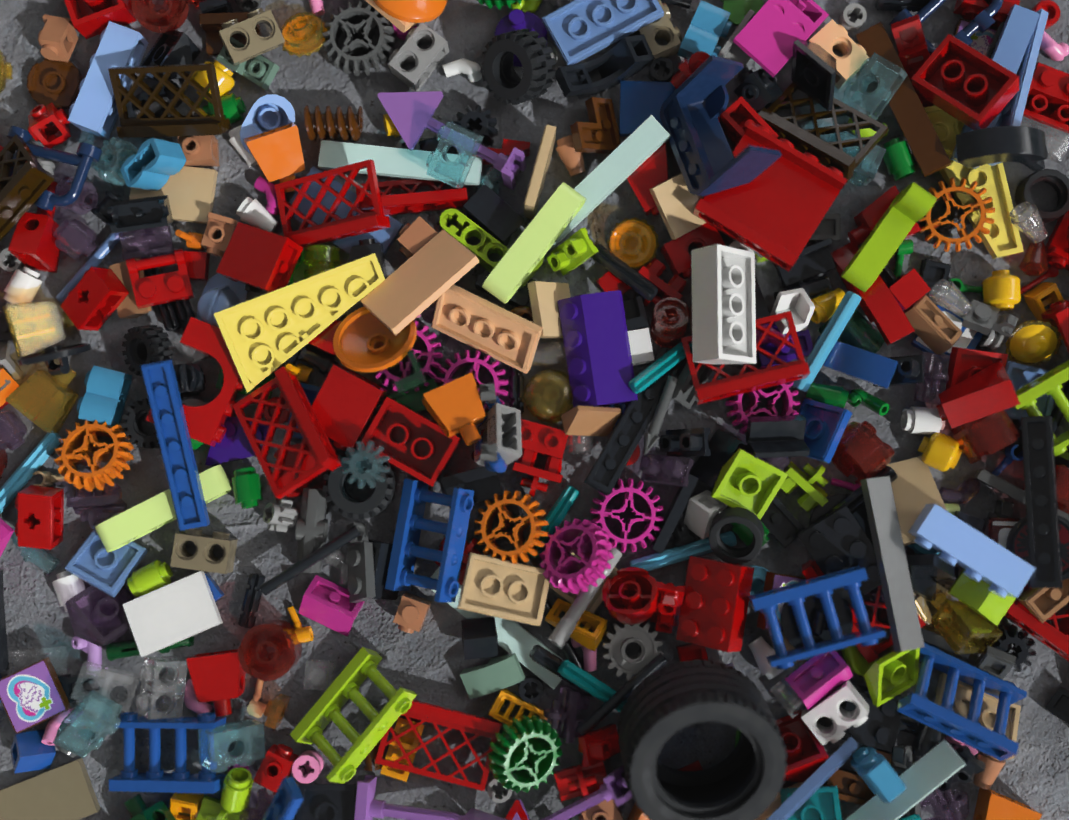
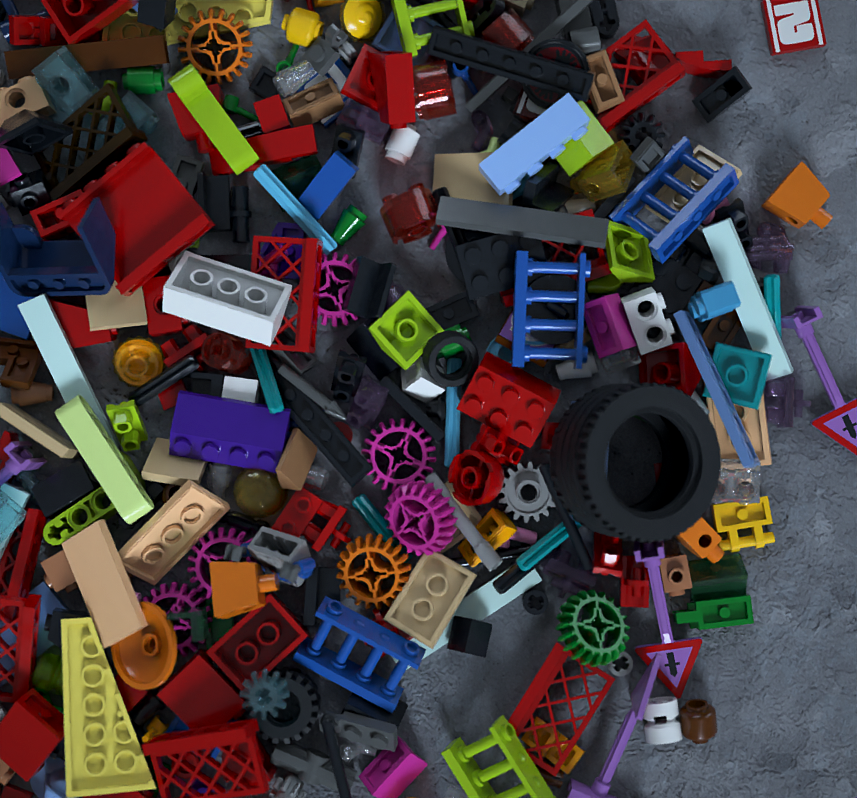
camera: 70 degrees left, 0 degrees up
(411, 613) = (424, 694): nougat brick -> none
(492, 677) = (511, 635): sand green slope -> none
(505, 718) = (539, 621): light orange slope -> none
(800, 306) = (253, 224): white panel -> none
(813, 492) = (437, 269): lime hips -> none
(823, 428) = (376, 241): blue tile -> none
(826, 305) = (261, 202): yellow cone -> none
(868, 400) = (359, 194): green arm -> none
(940, 451) = (436, 137): yellow head -> none
(987, 777) = (748, 194): nougat cone -> none

